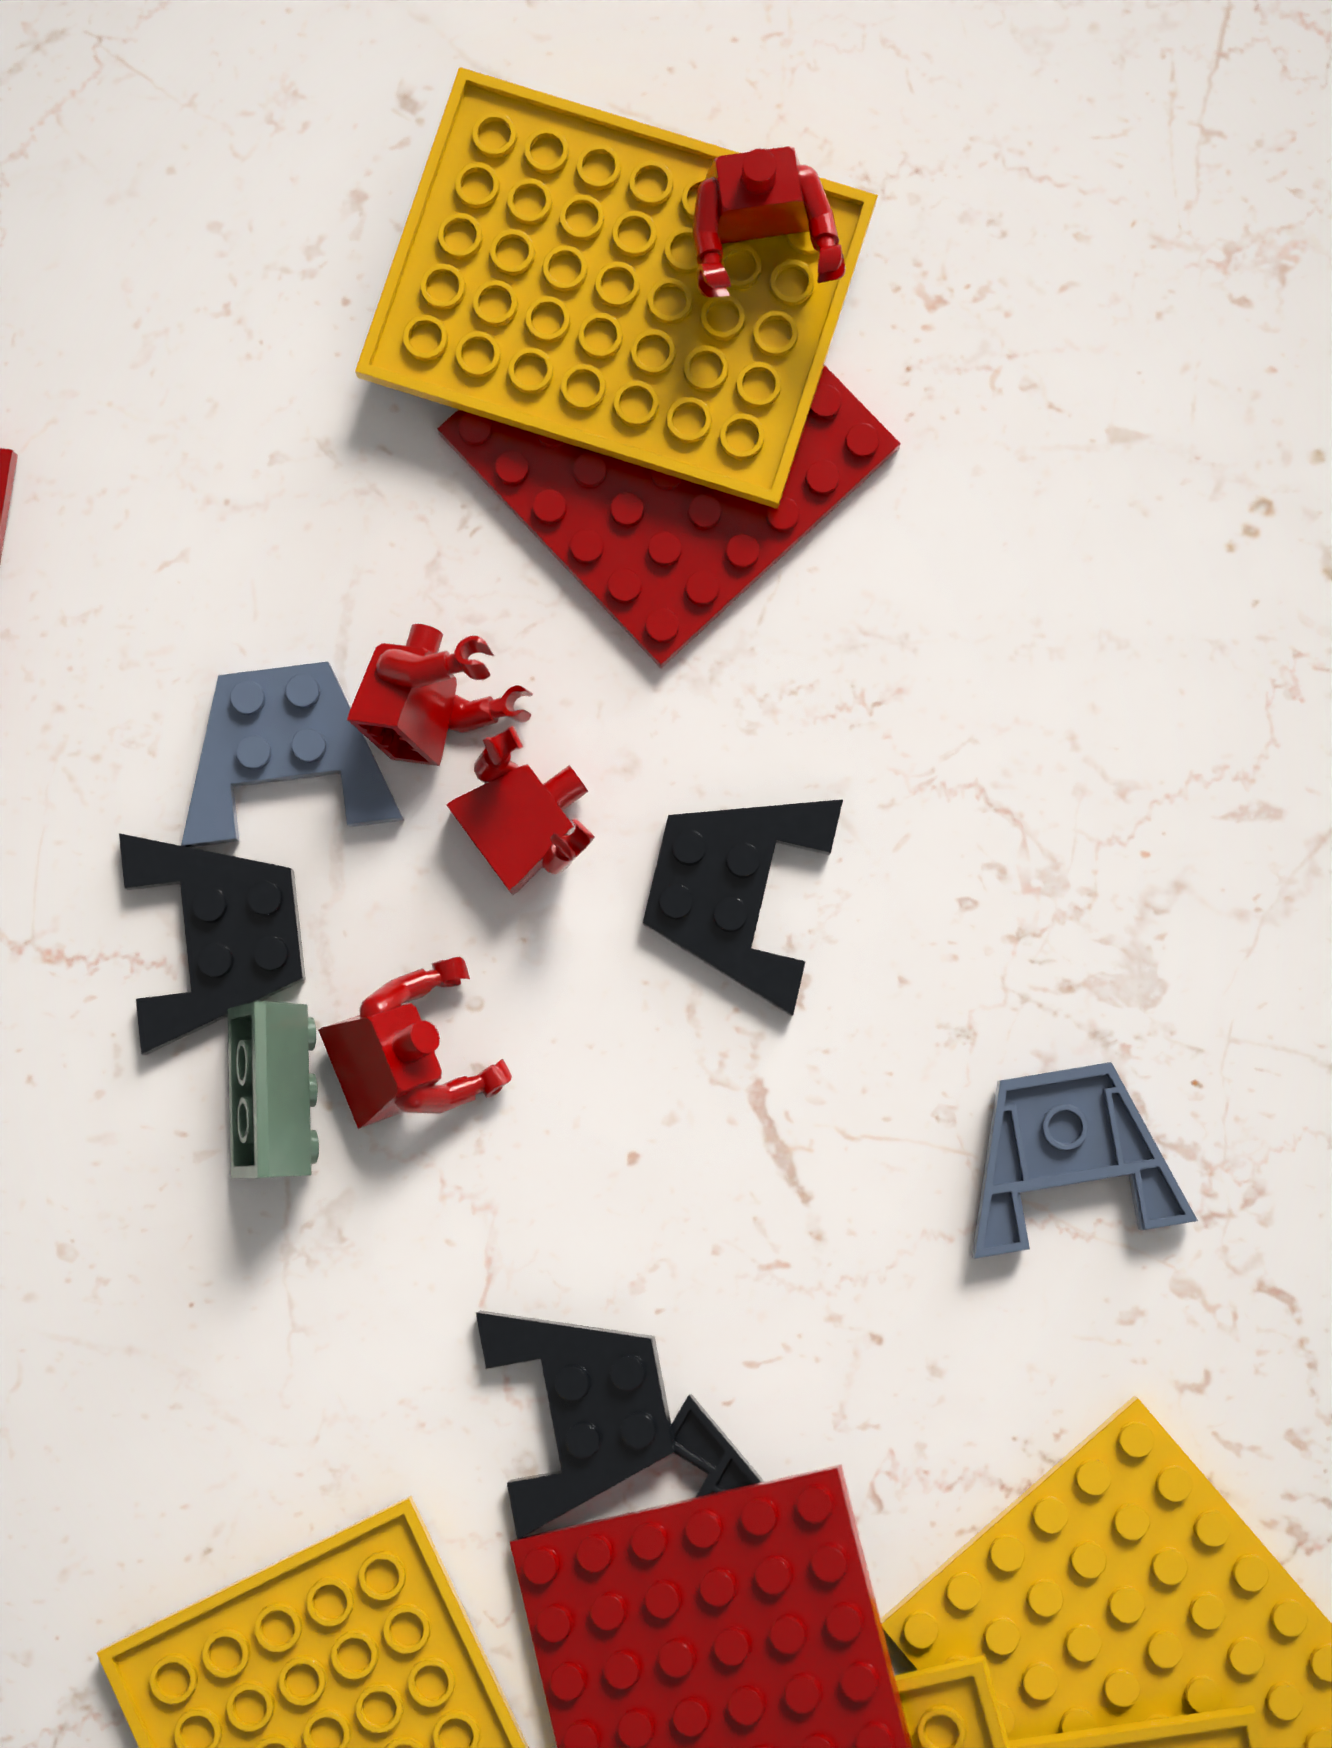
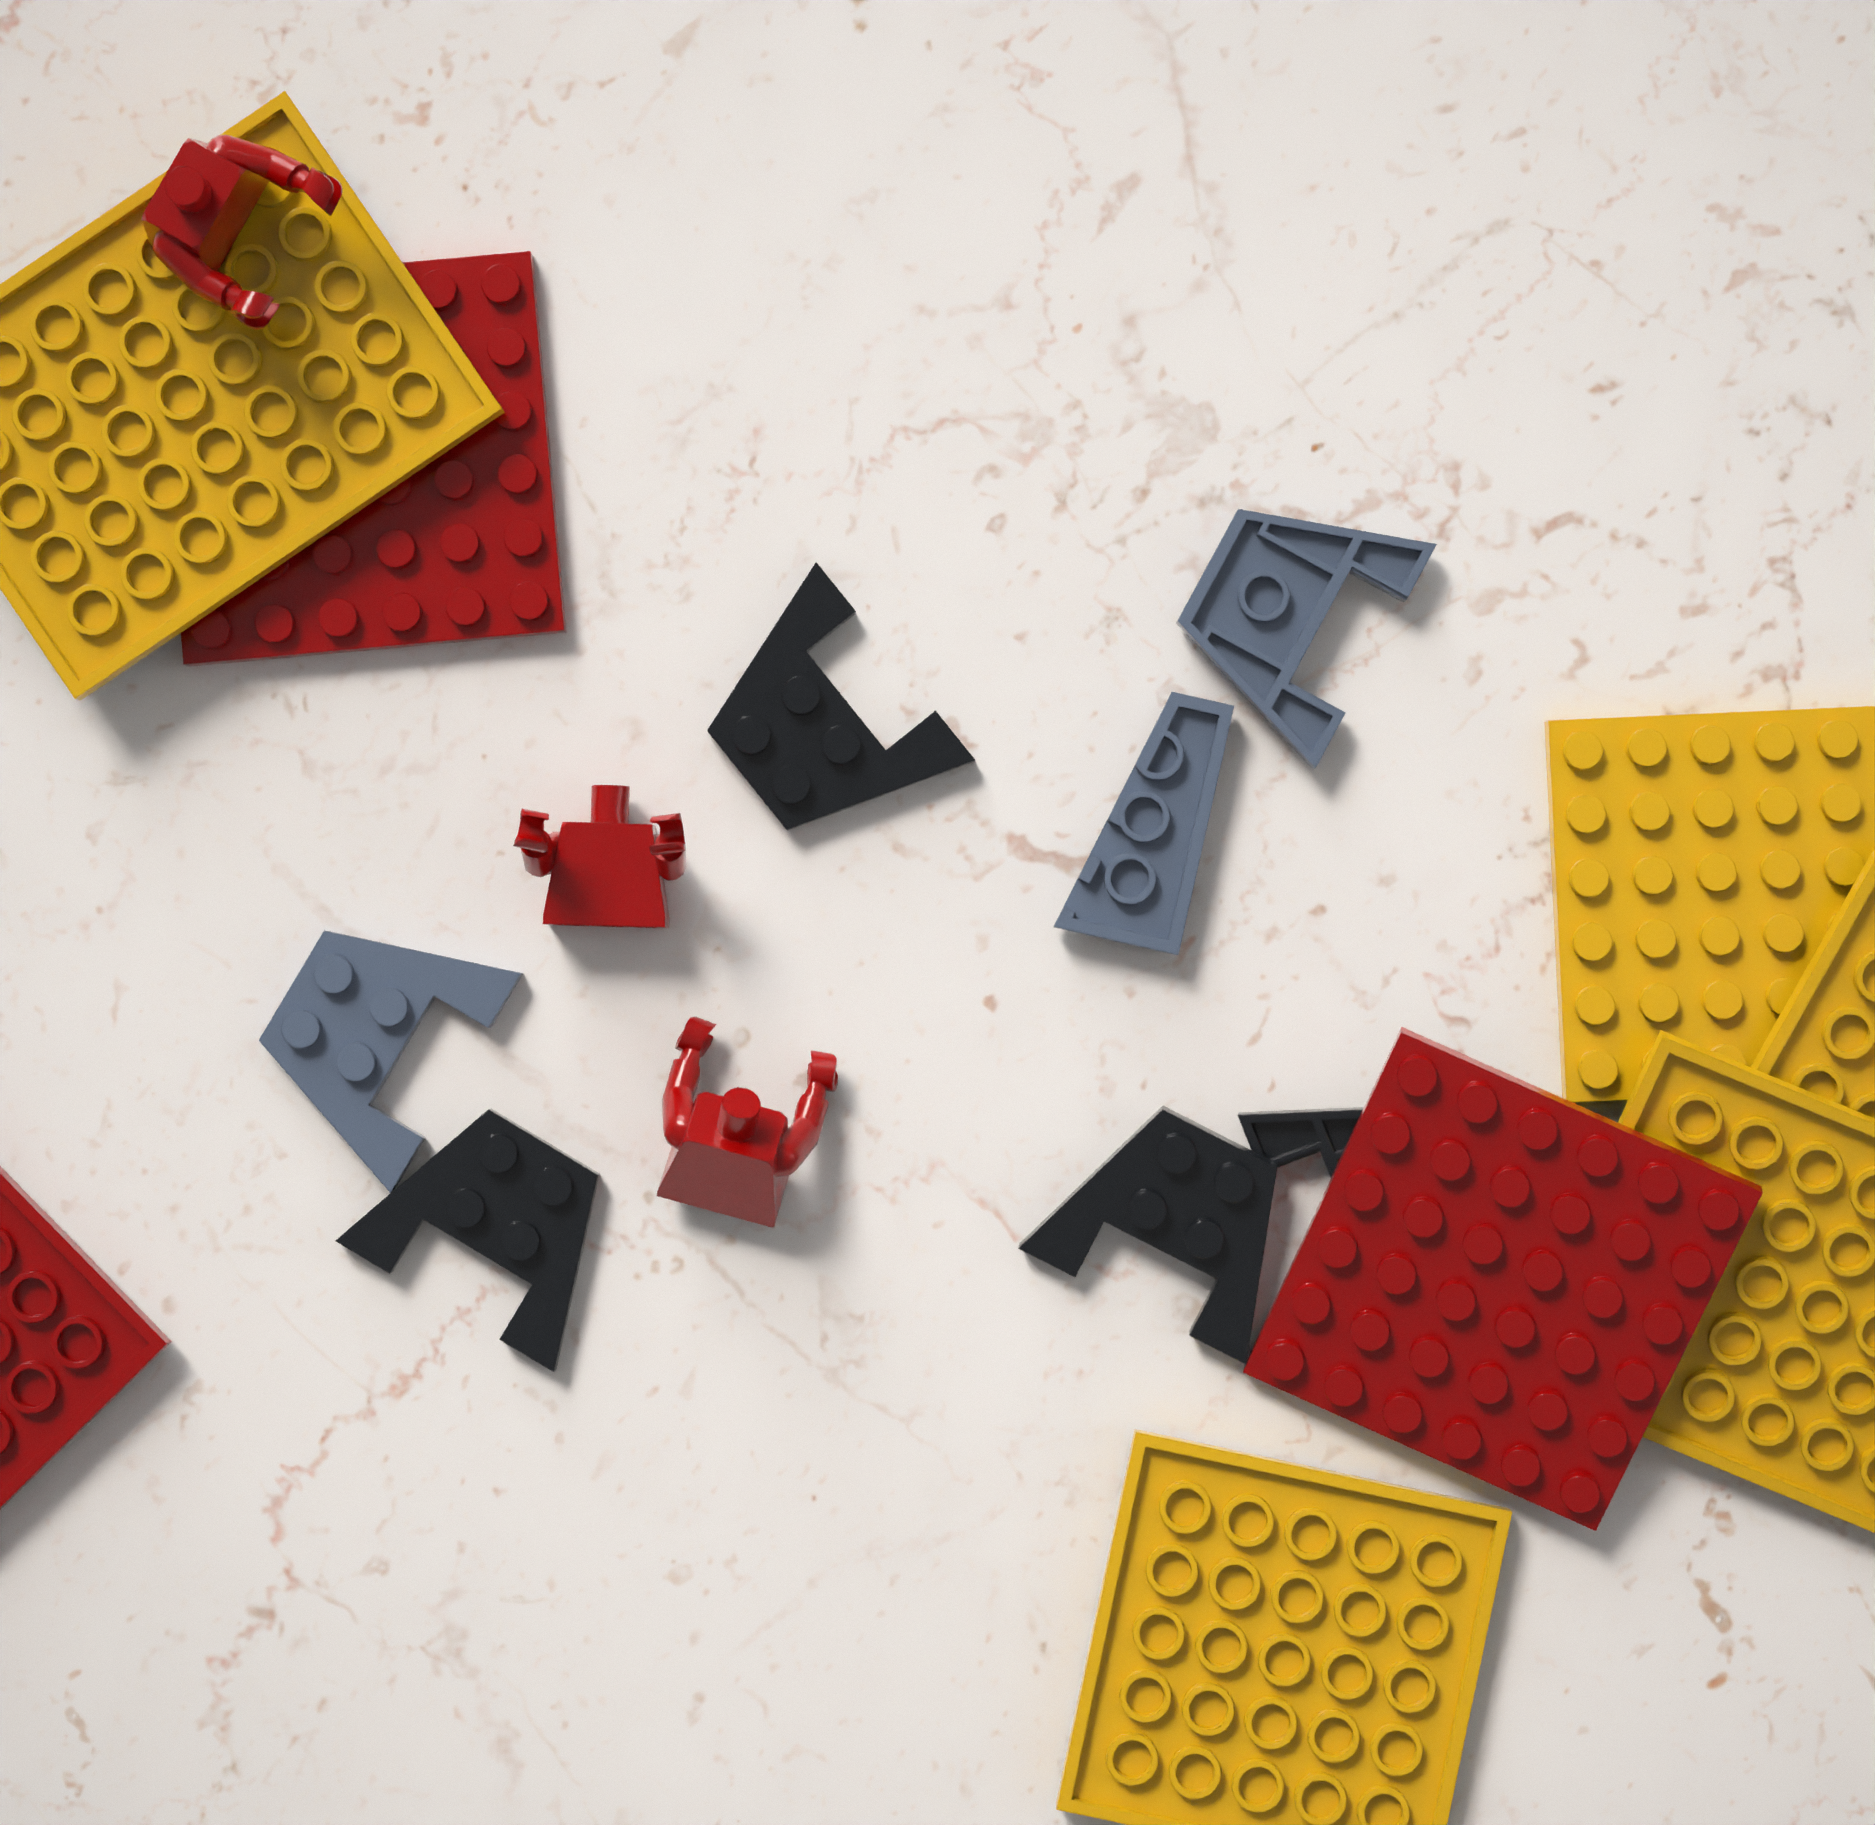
camera: 55 degrees left, 5 degrees up
(271, 1090) = (679, 1279): sand green slope -> none
(412, 701) = (419, 880): red torso -> none
(829, 1184) = (1151, 846): none -> sand blue wing

